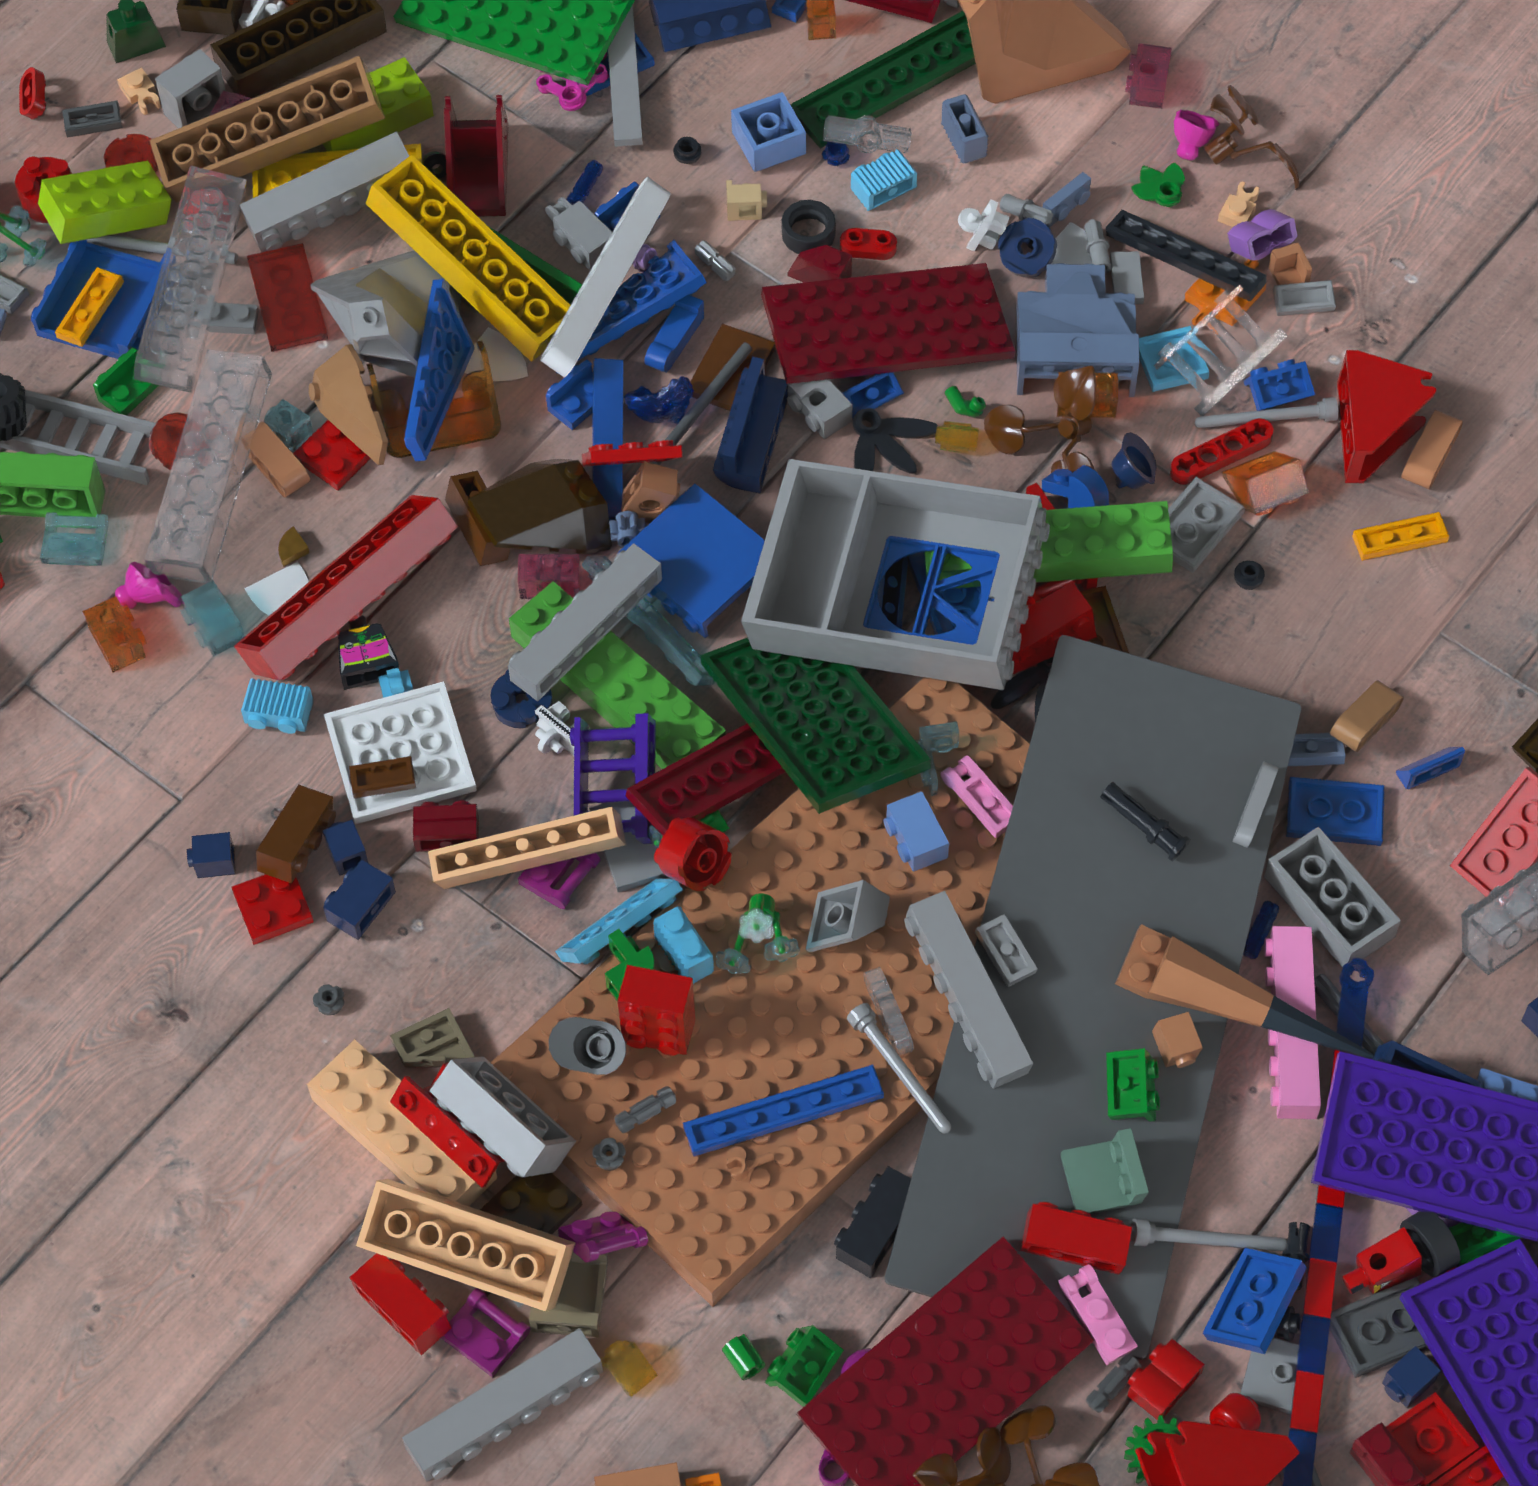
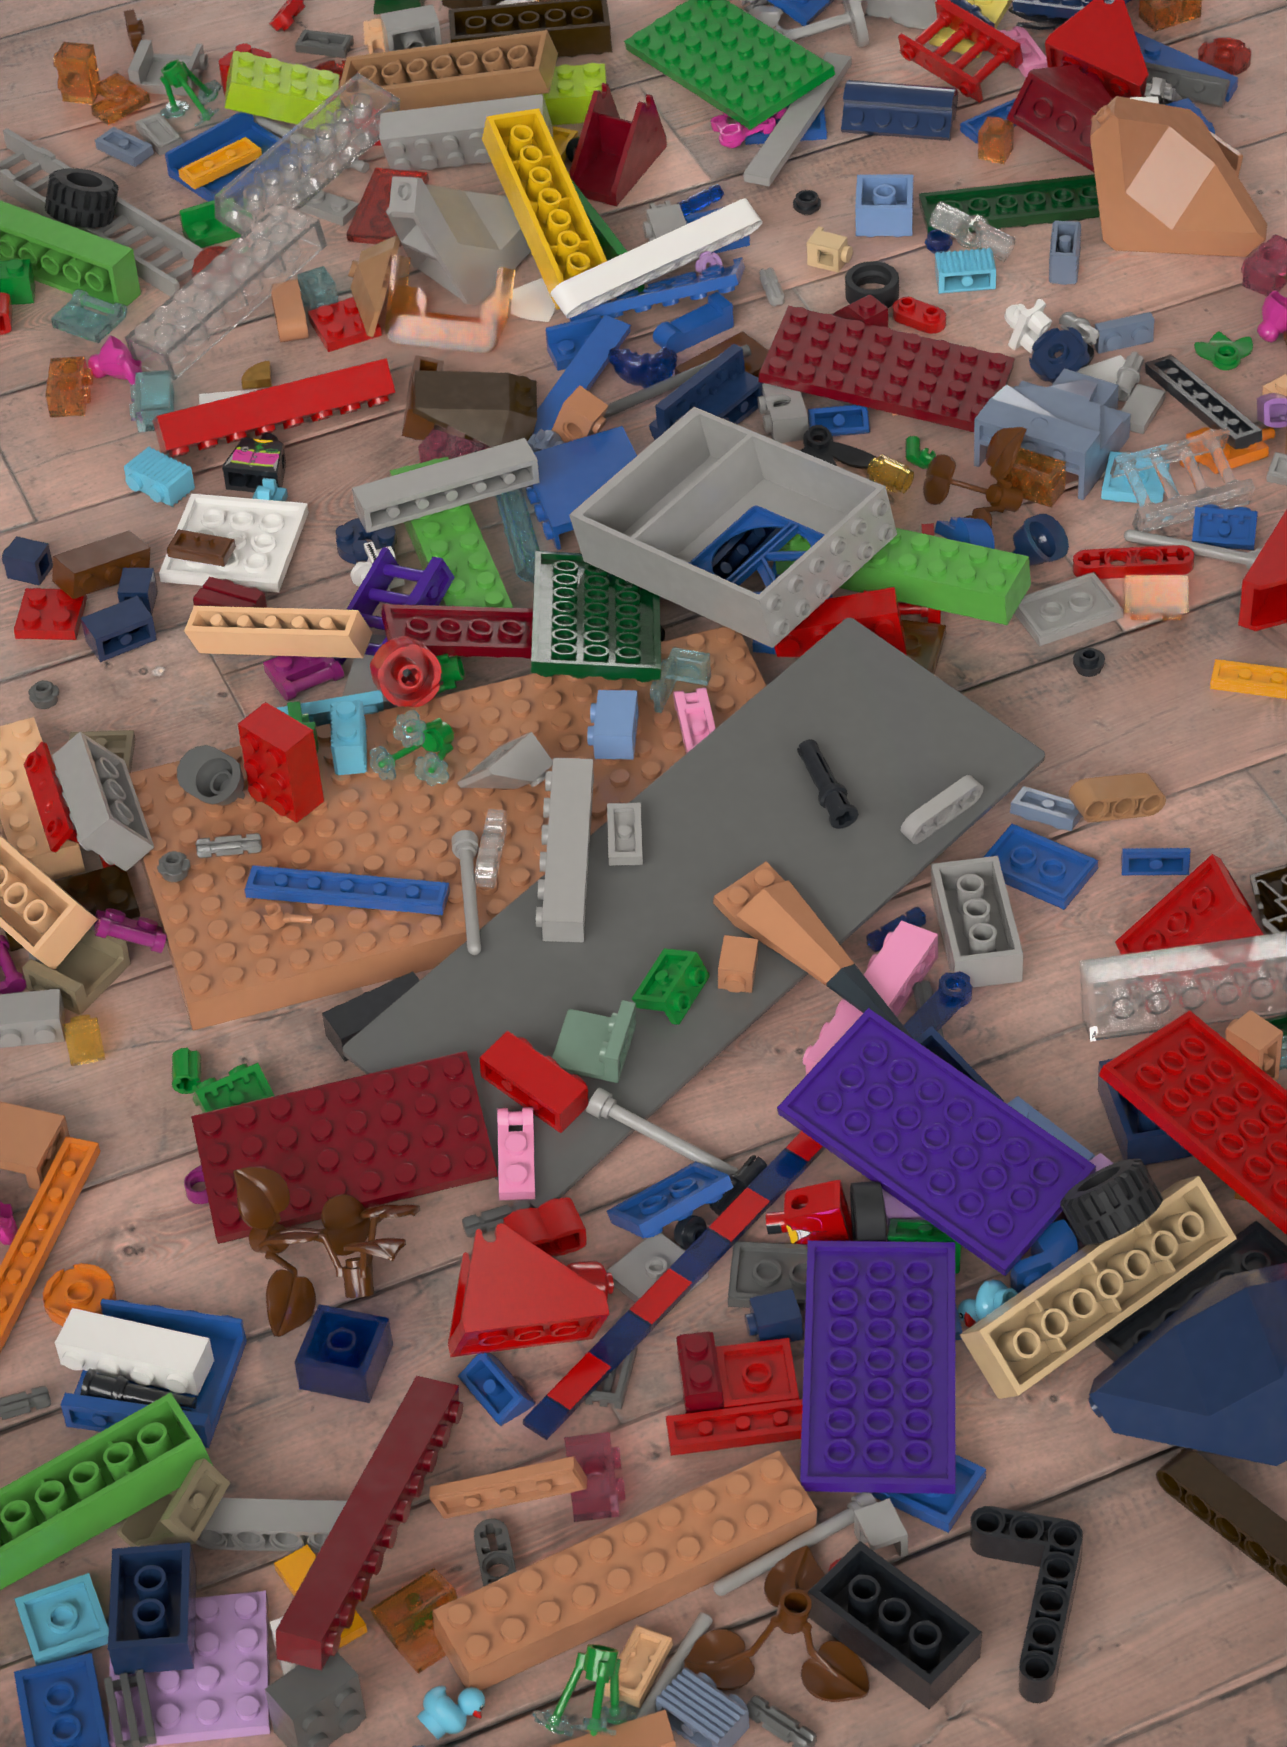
camera: 30 degrees right, 15 degrees down
(440, 367) = (458, 277): blue wing -> none
(631, 453) = (565, 376): red plate -> none

